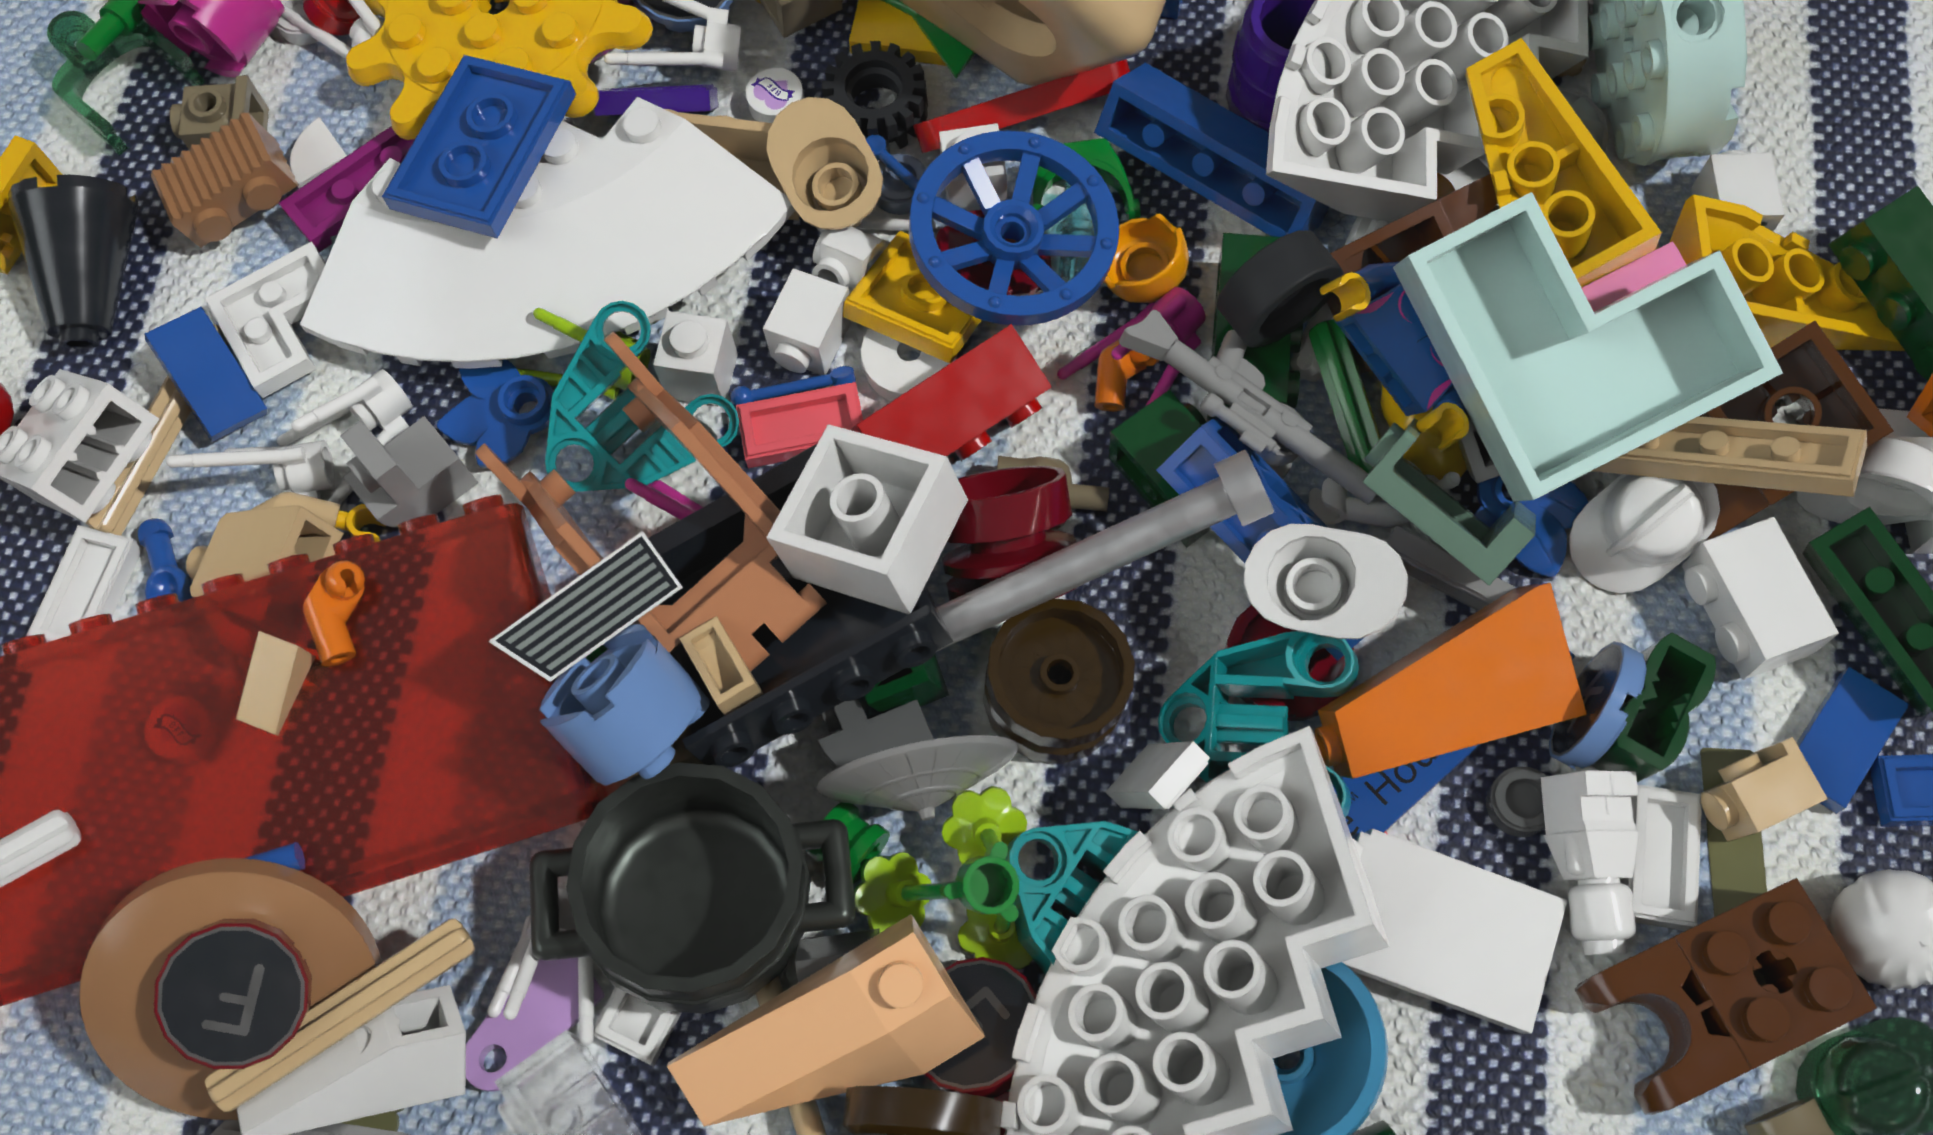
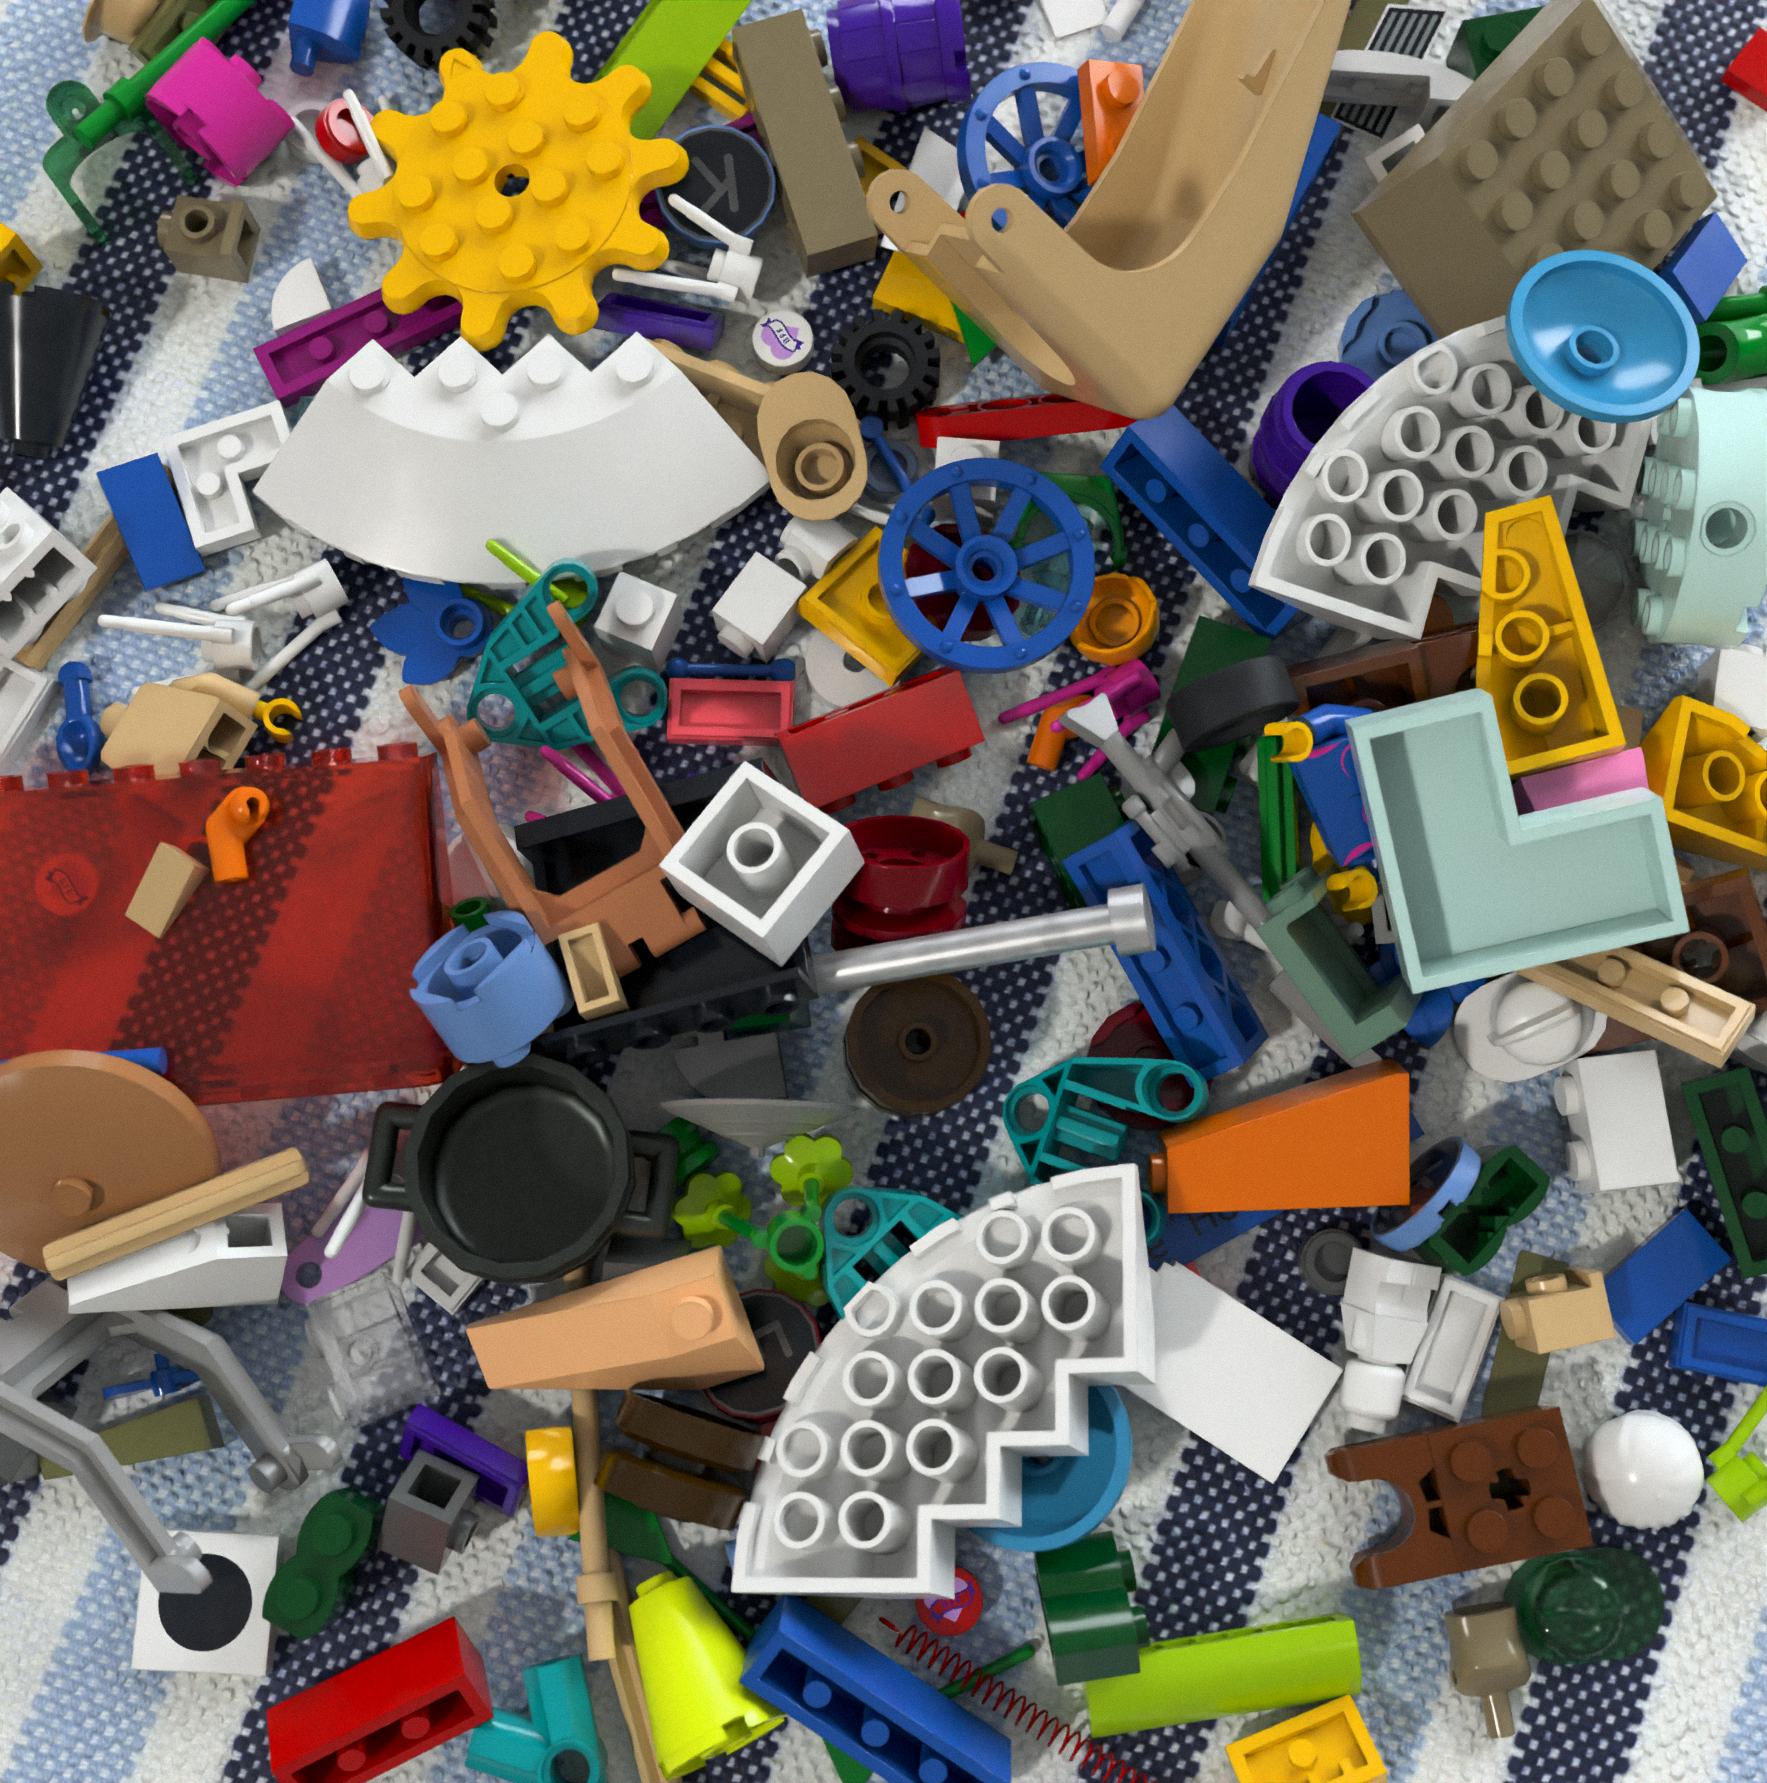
camera: 10 degrees right, 10 degrees up
(223, 180) = (202, 312): medium nougat brick -> none
(232, 994) = (81, 1180): black tile -> none
(408, 475) = (331, 679): light grey brick -> none
(479, 146) = (465, 354): blue tile -> none
(590, 609) = (478, 888): sticker -> none
(1158, 775) = (987, 1163): white tile -> none
(1325, 581) = (1190, 1023): white piece -> none

